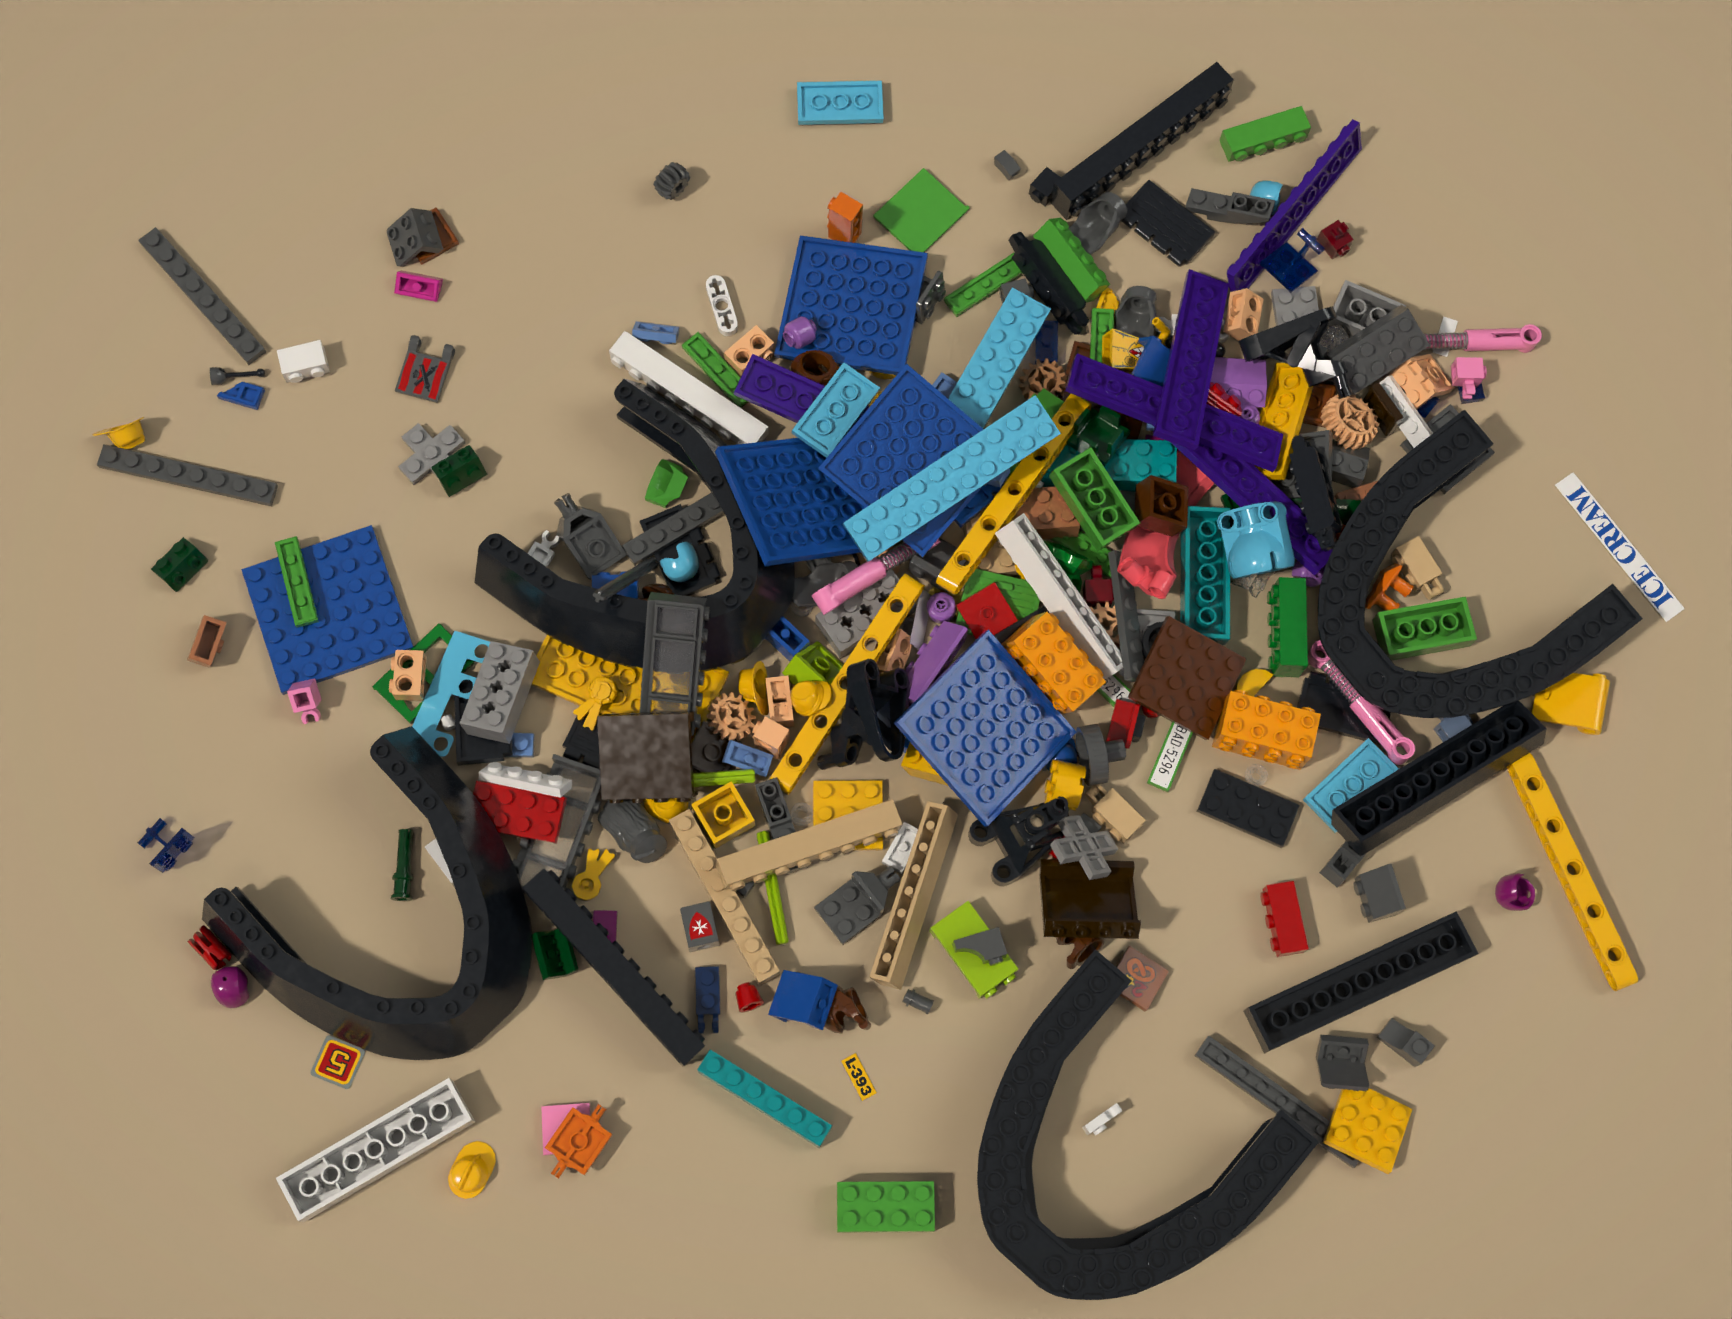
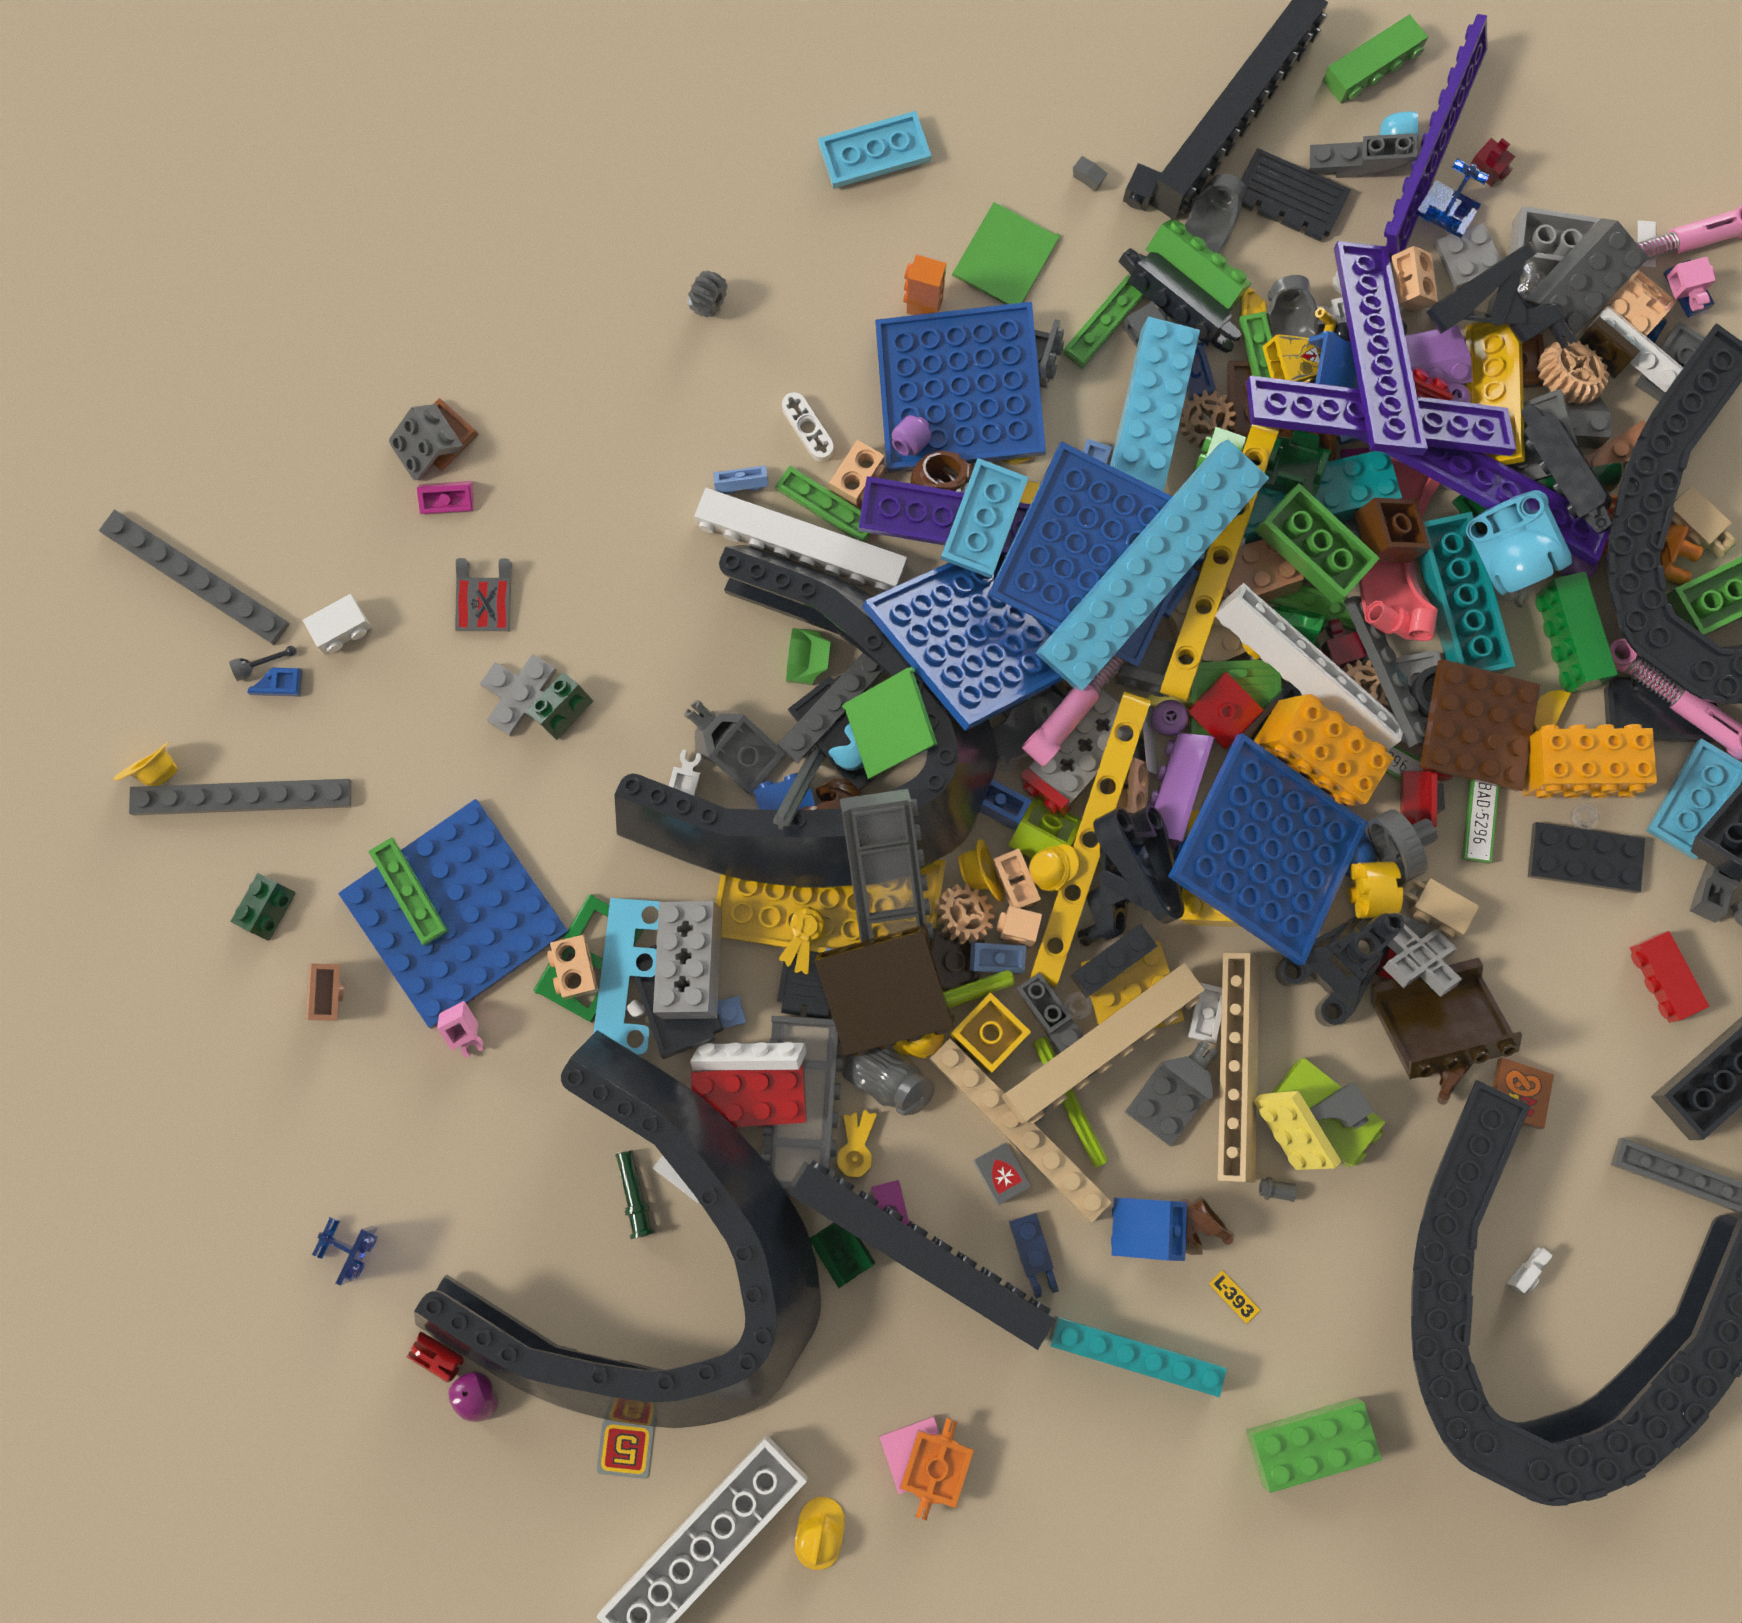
camera: 10 degrees left, 5 degrees up
(710, 547) = (890, 723): none -> bright green piece
(748, 997) = (1081, 1240): red hat -> none
(828, 646) = (1037, 787): none -> red plate
(837, 783) = (1113, 960): none -> black brick
(943, 954) = (1297, 1130): none -> light yellow plate

